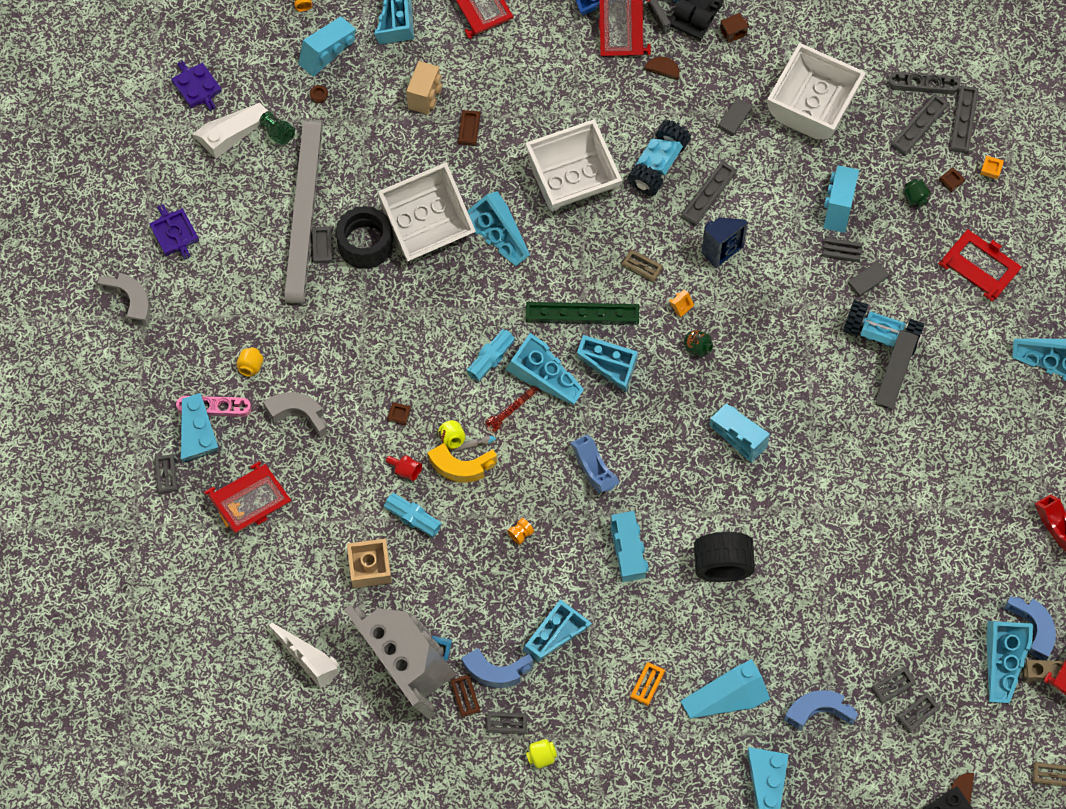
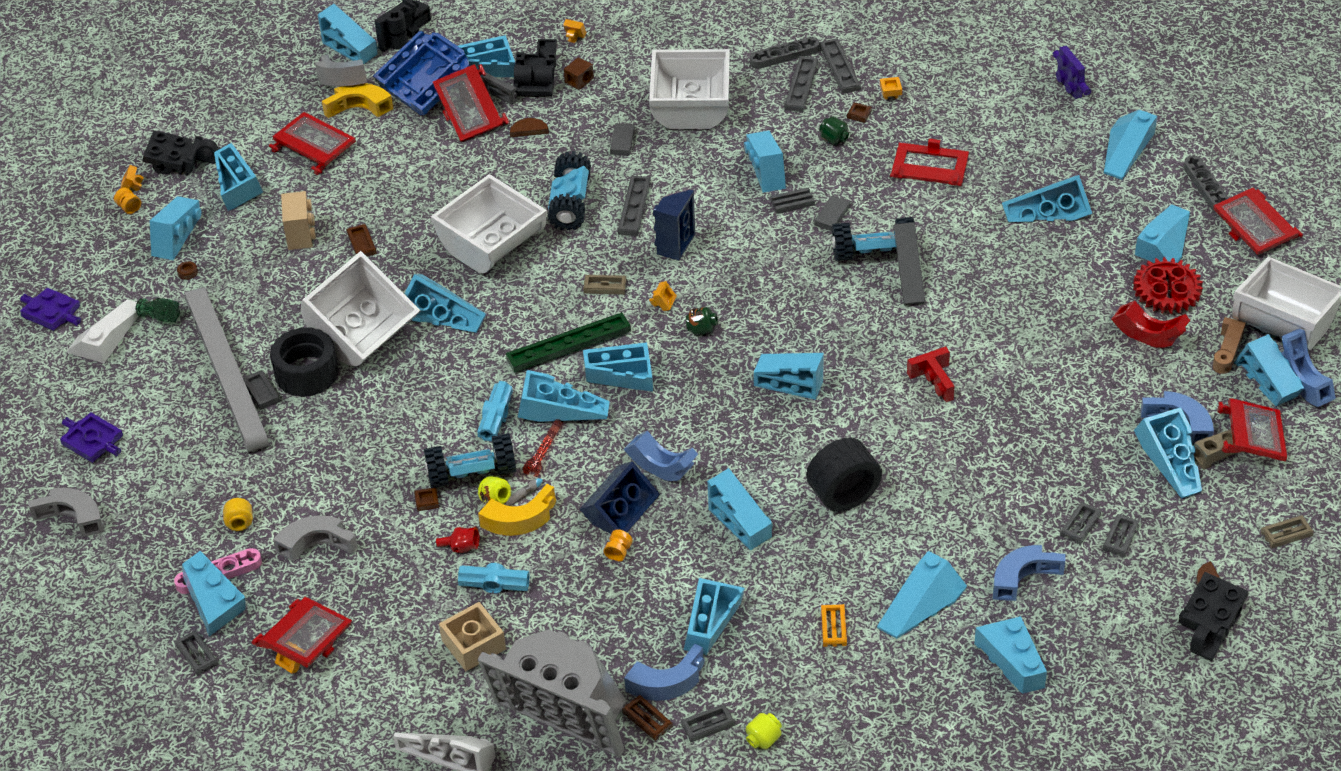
camera: 25 degrees left, 20 degrees down
(445, 398) = (471, 462): none -> plate
(543, 489) = (620, 499): none -> dark blue slope
(858, 475) = (931, 365): none -> red bracket

